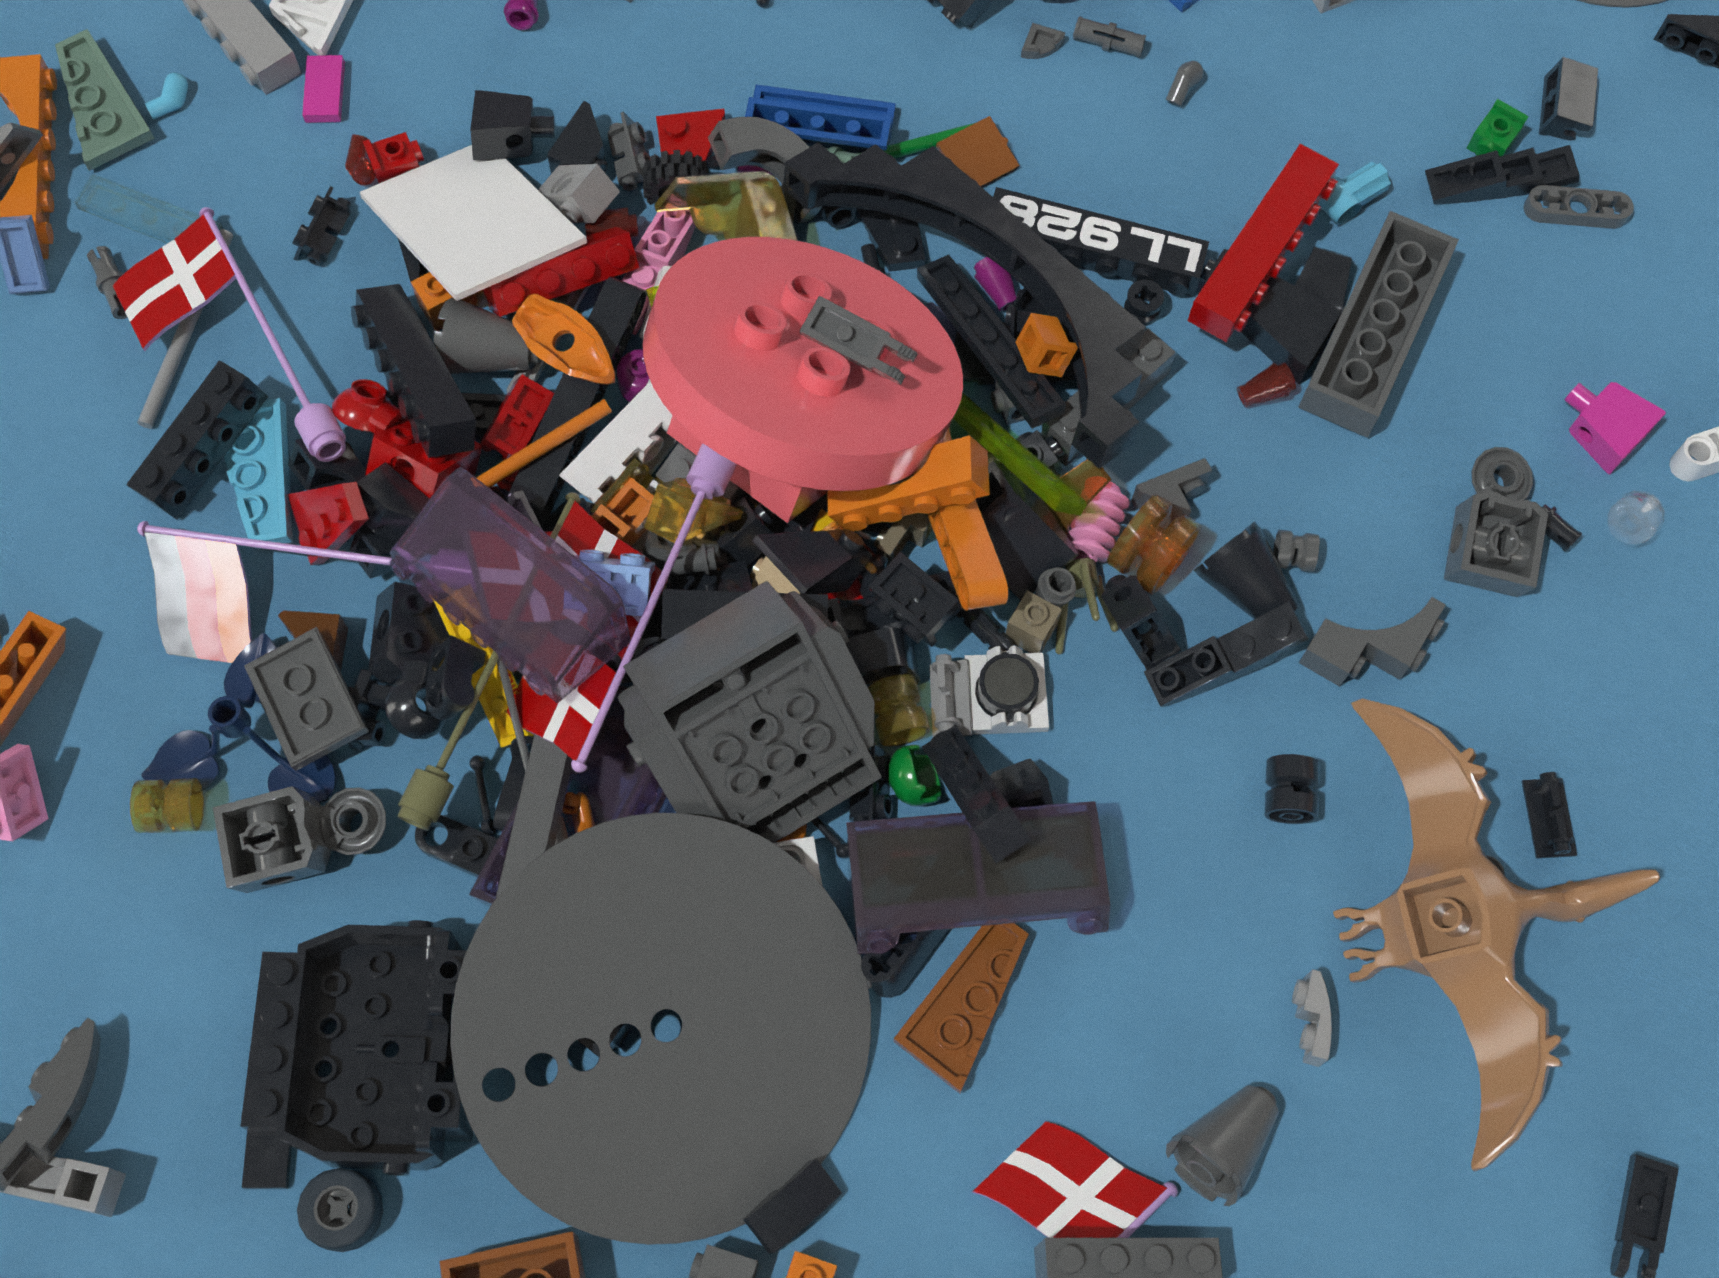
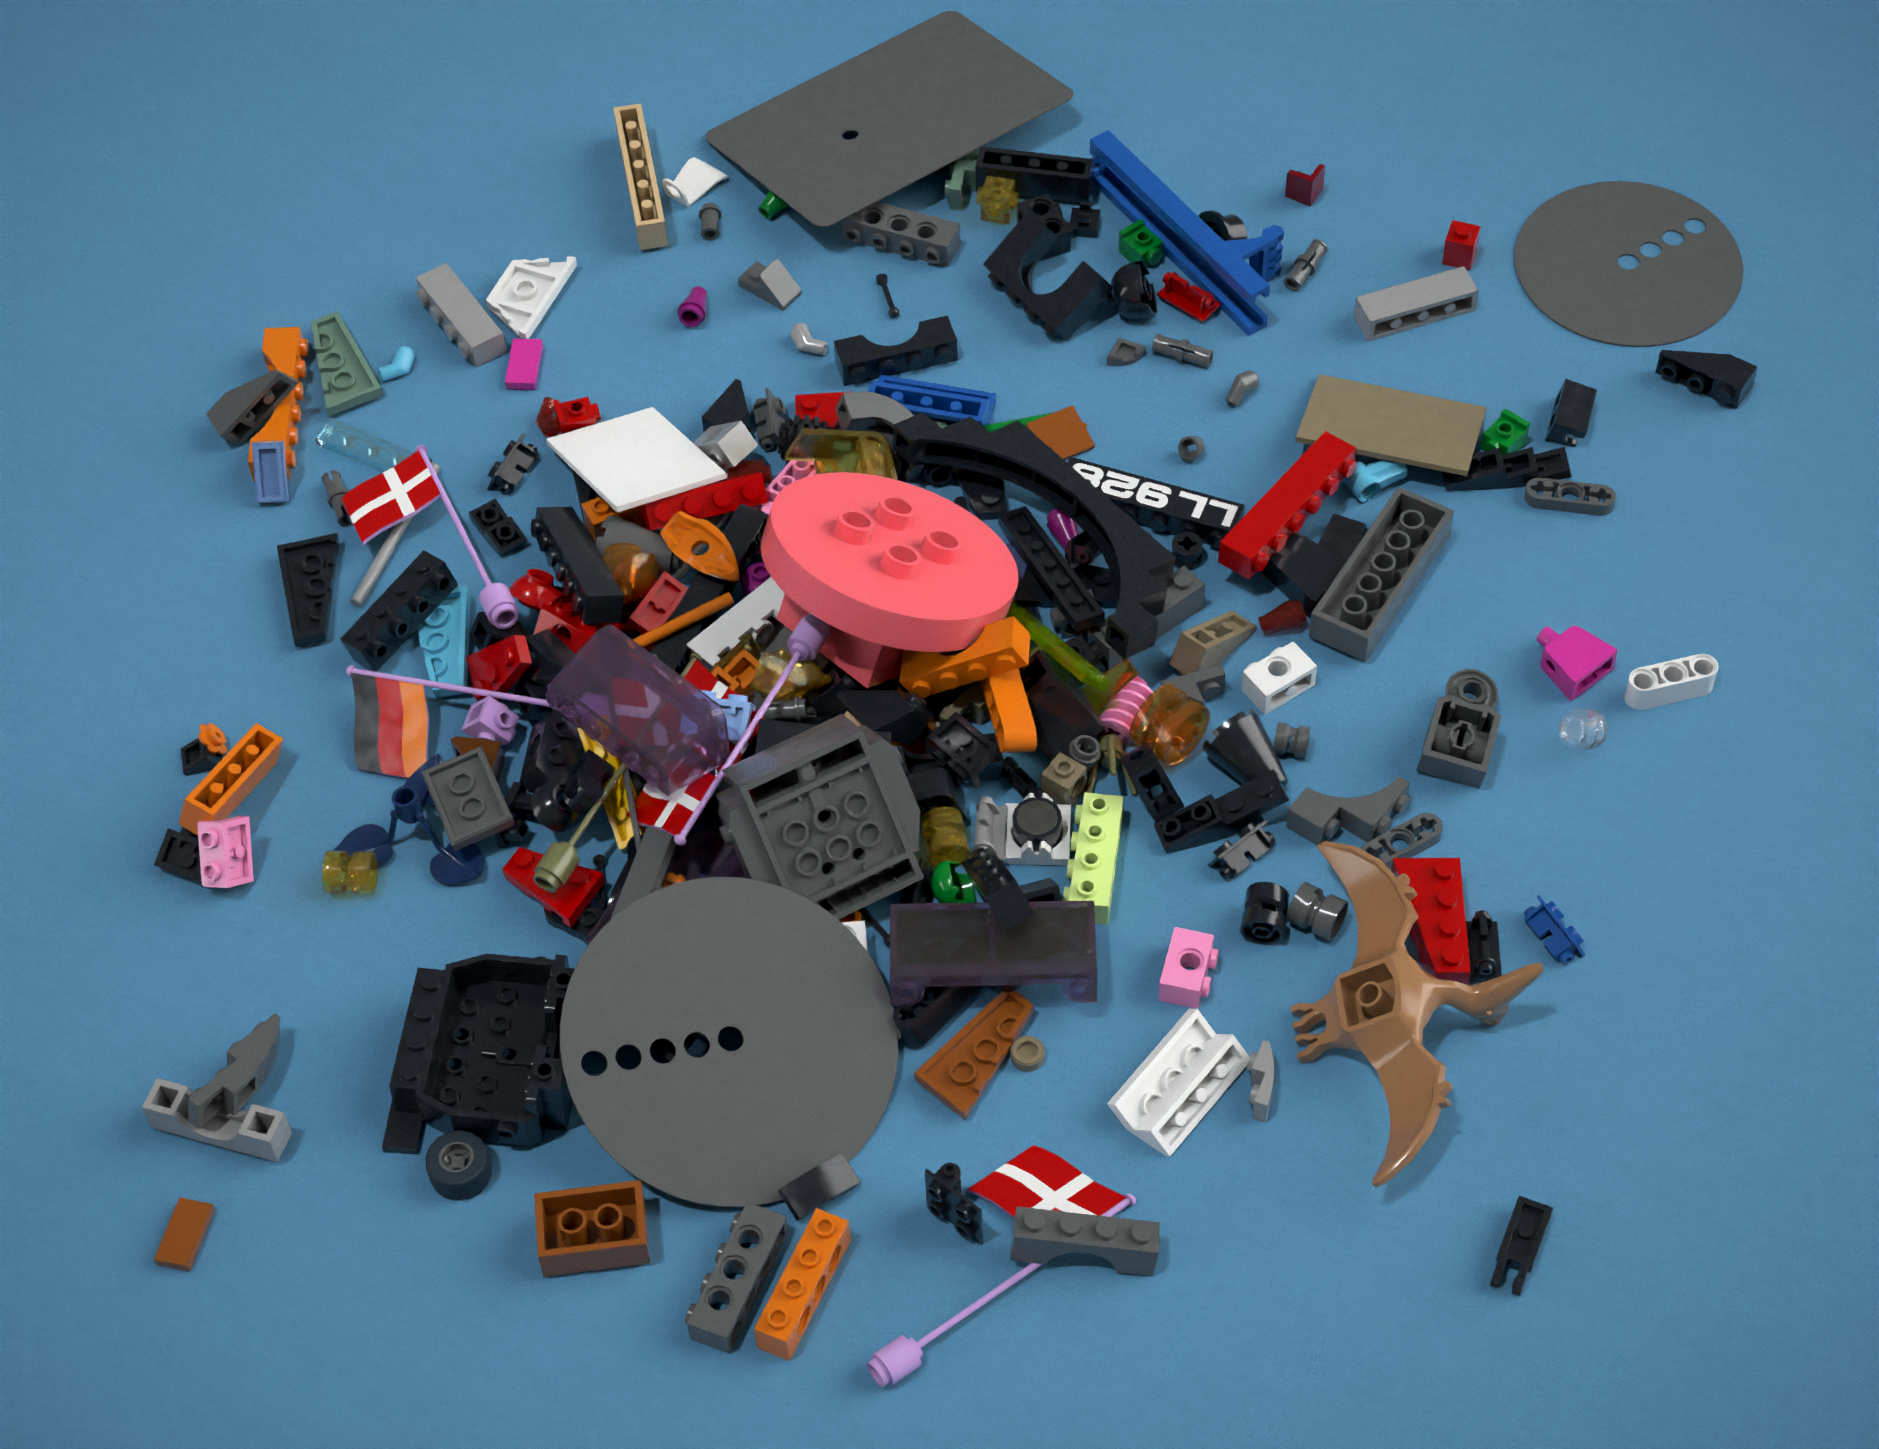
camera: 10 degrees right, 15 degrees down
(82, 403) = (308, 583): none -> black wing
(291, 835) = (441, 898): dark grey brick -> none
(310, 312) = (496, 527): none -> black slope
(325, 586) = (490, 721): none -> lavender brick
(388, 781) = (566, 901): none -> red wing
(480, 375) = (631, 569): none -> clear orange cylinder
(506, 126) = (670, 395): black torso -> none
(661, 44) = (804, 341): none -> light grey arm
(736, 67) = (863, 360): none -> black arch
(854, 338) = (929, 540): dark grey hinge -> none
(947, 1220) = (947, 1202): none -> black hinge
(1025, 995) = (1027, 1053): none -> dark tan tile
(1045, 345) = (1093, 569): orange brick -> none
(1081, 723) = (1095, 853): none -> yellowish green brick
(1138, 171) = (1188, 441): none -> dark grey hinge
(1186, 426) = (1210, 642): none -> dark tan slope
(1194, 888) = (1185, 950): none -> bright pink brick
(1213, 1025) = (1178, 1083): none -> white slope
(1225, 1144) = (1174, 1163): dark grey cone -> none
(1240, 708) = (1232, 857): none -> hinge
(1261, 484) = (1278, 677): none -> white brick
(1353, 782) = (1315, 910): none -> dark grey wheel
(1367, 124) = (1394, 424): none -> dark tan piece
(1442, 665) = (1406, 831): none -> dark grey beam
(1513, 822) = (1441, 923): none -> red wedge
(1559, 529) = (1516, 735): black pin -> none
(1642, 799) = (1547, 919): none -> blue hinge

